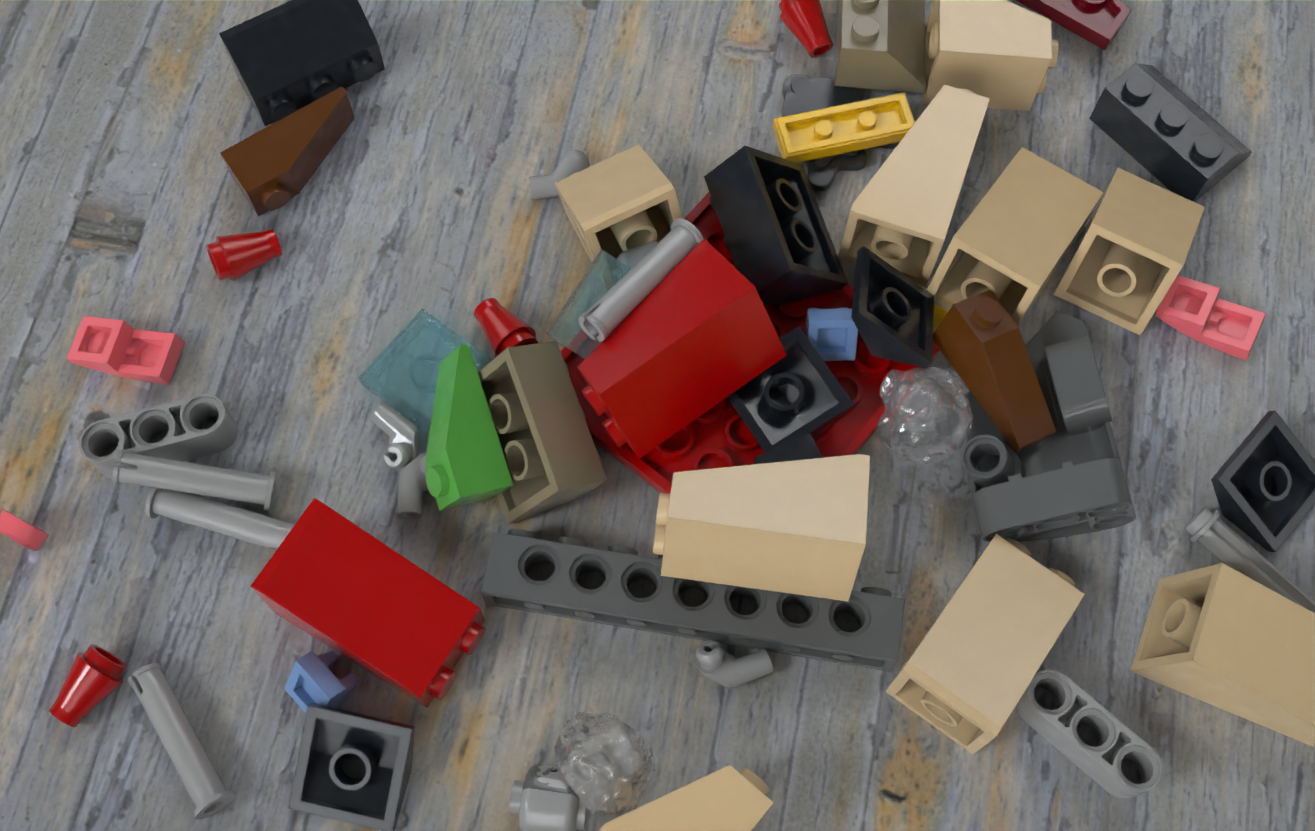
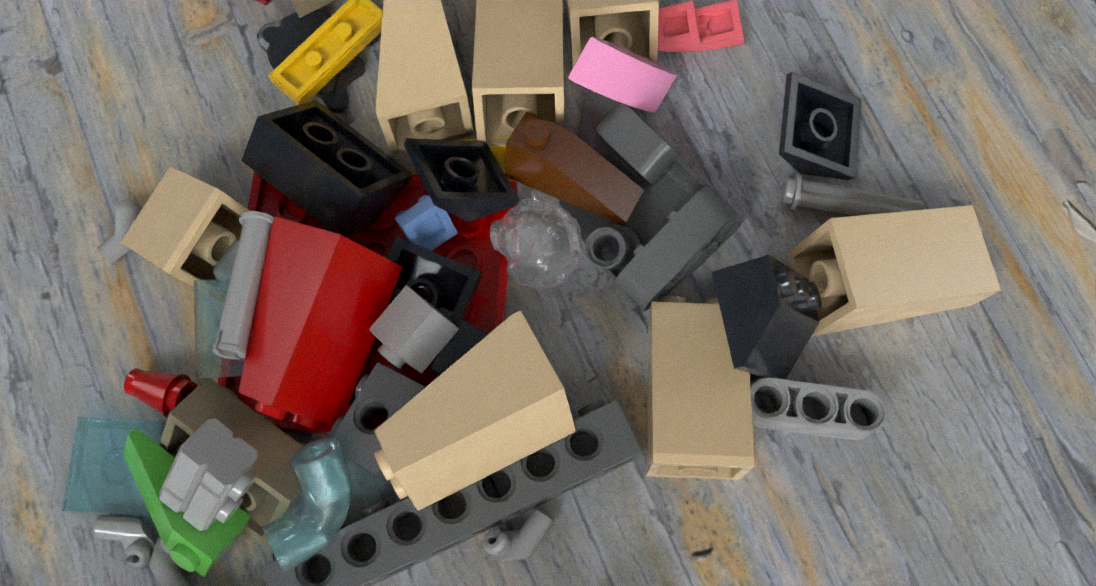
camera: 30 degrees left, 5 degrees up
(507, 421) = (209, 475): none -> light grey brick
(580, 514) = (321, 507): none -> clear light blue cylinder
(646, 470) = (375, 393): none -> dark grey brick
(760, 414) = (412, 331): none -> light grey brick
(1100, 612) = (766, 314): none -> black slope
(1104, 312) = (622, 75): none -> bright pink slope

